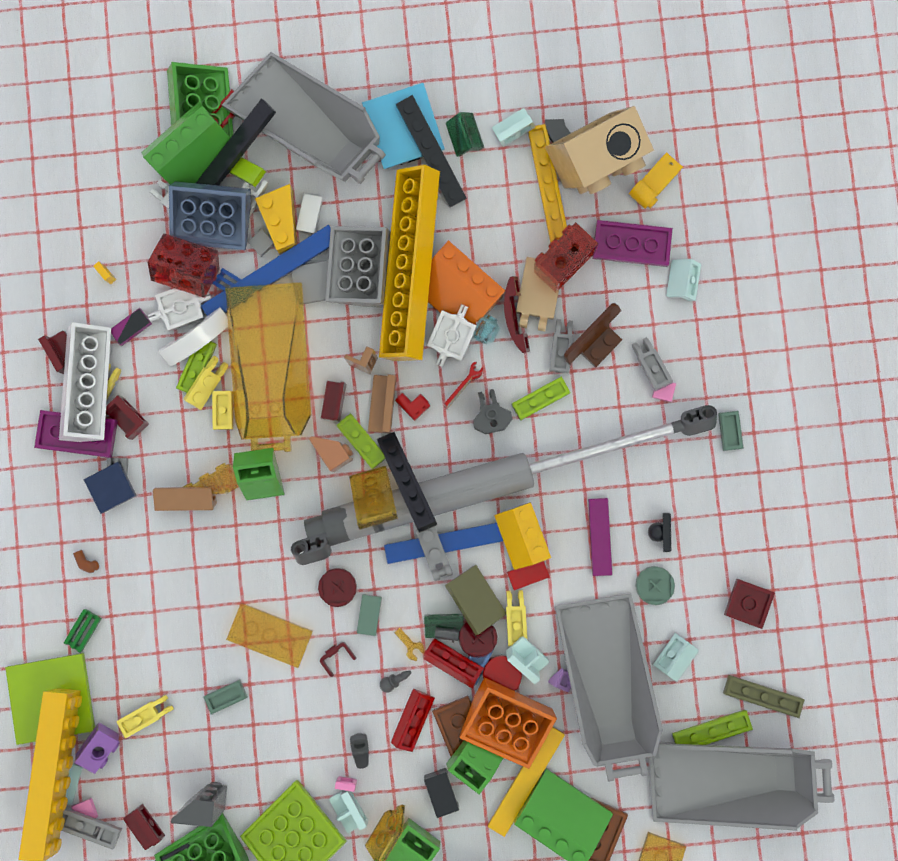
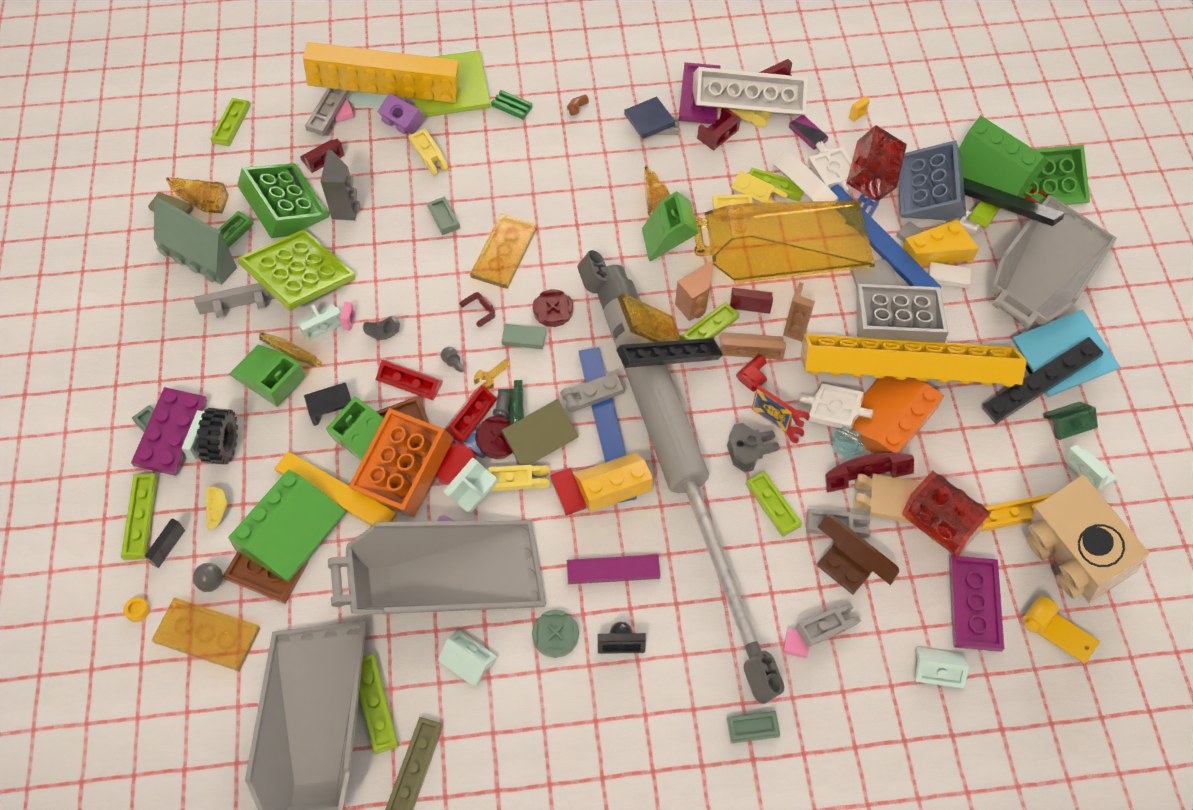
camera: 85 degrees right, 25 degrees down
(183, 498) = (641, 172): medium nougat panel -> none
(749, 603) = (532, 748): dark red plate -> none

